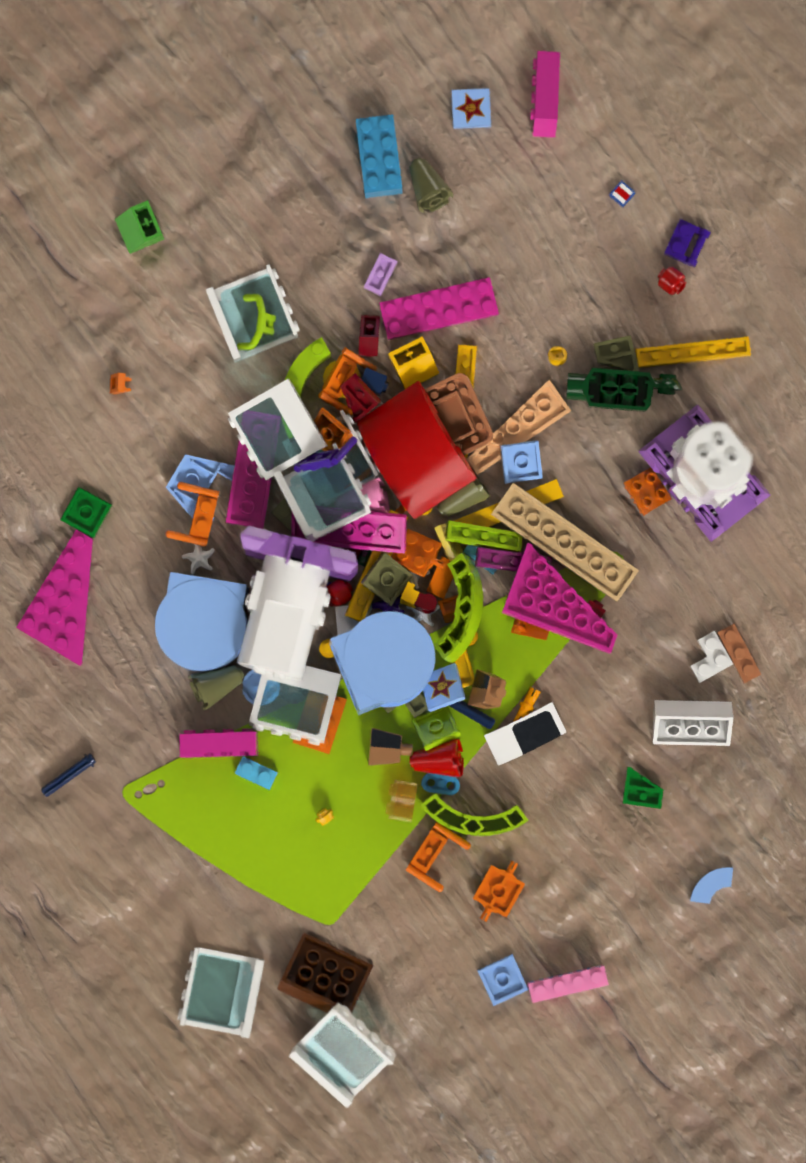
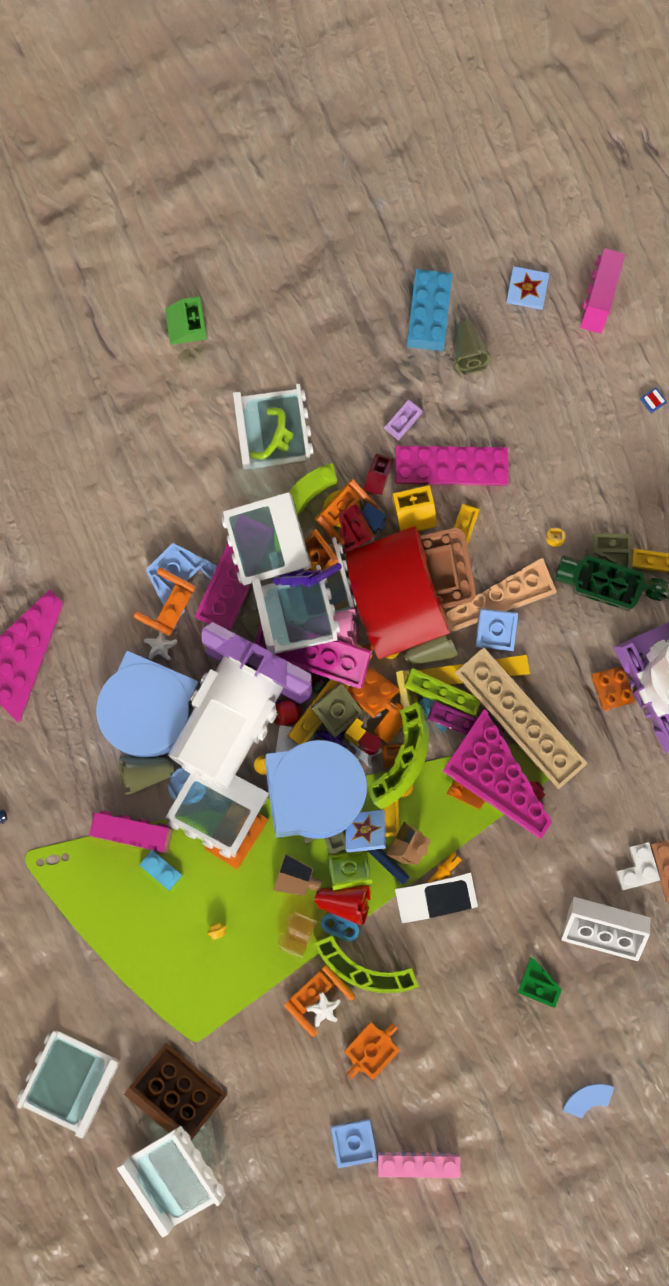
camera: 15 degrees right, 5 degrees down
(86, 512) = (63, 576): green tile -> none
(117, 383) = (126, 461): orange tile -> none
(444, 864) = (323, 1009): none -> white animal

